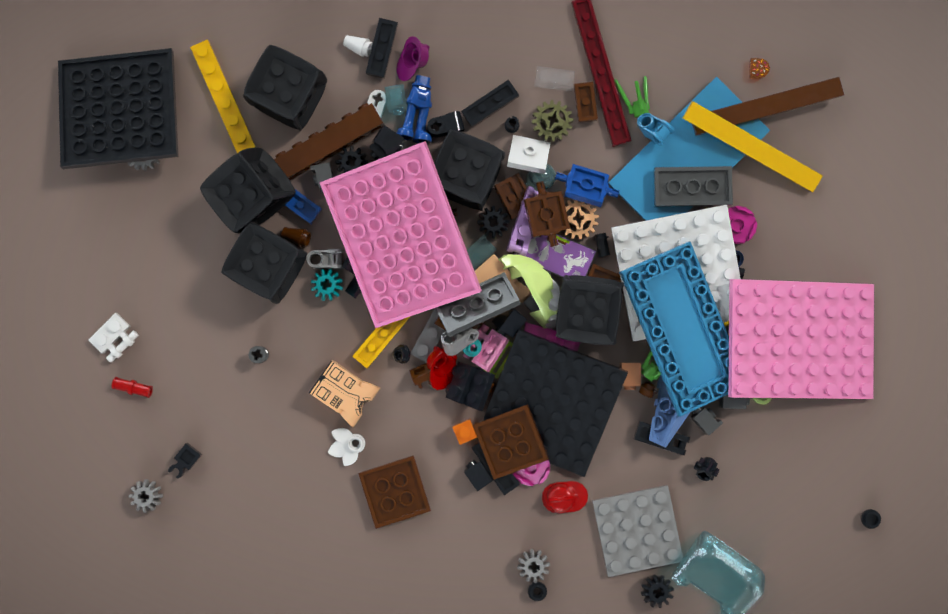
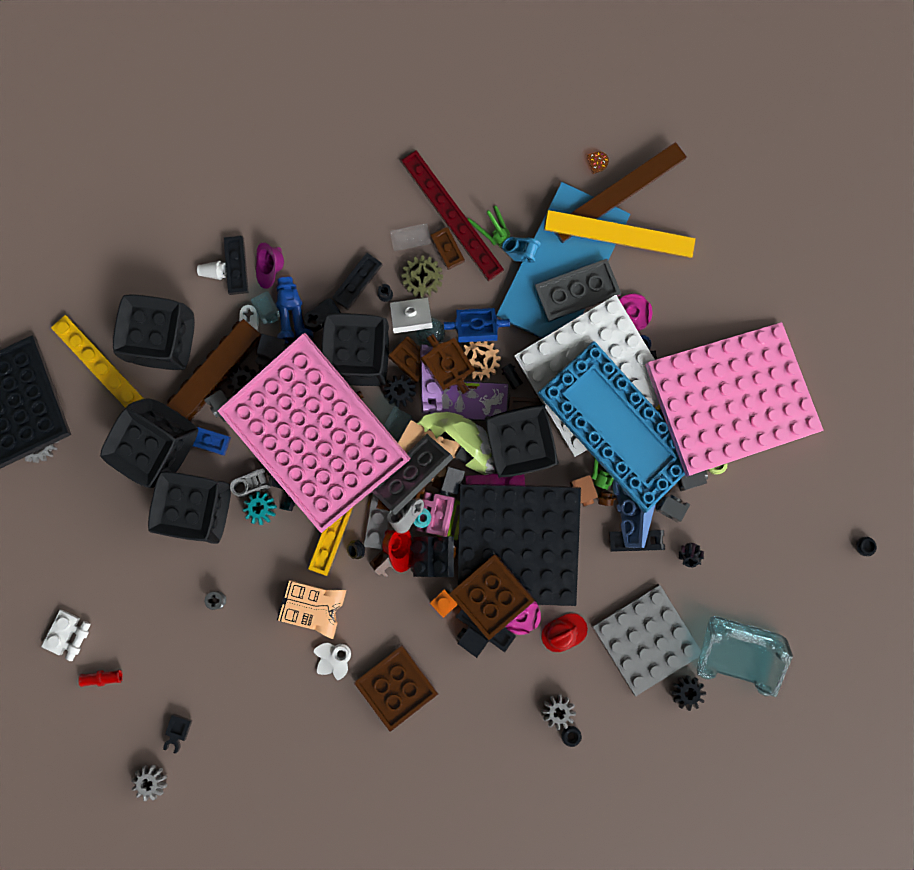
camera: 20 degrees left, 5 degrees down
(299, 237) = (215, 471): reddish brown cone -> none

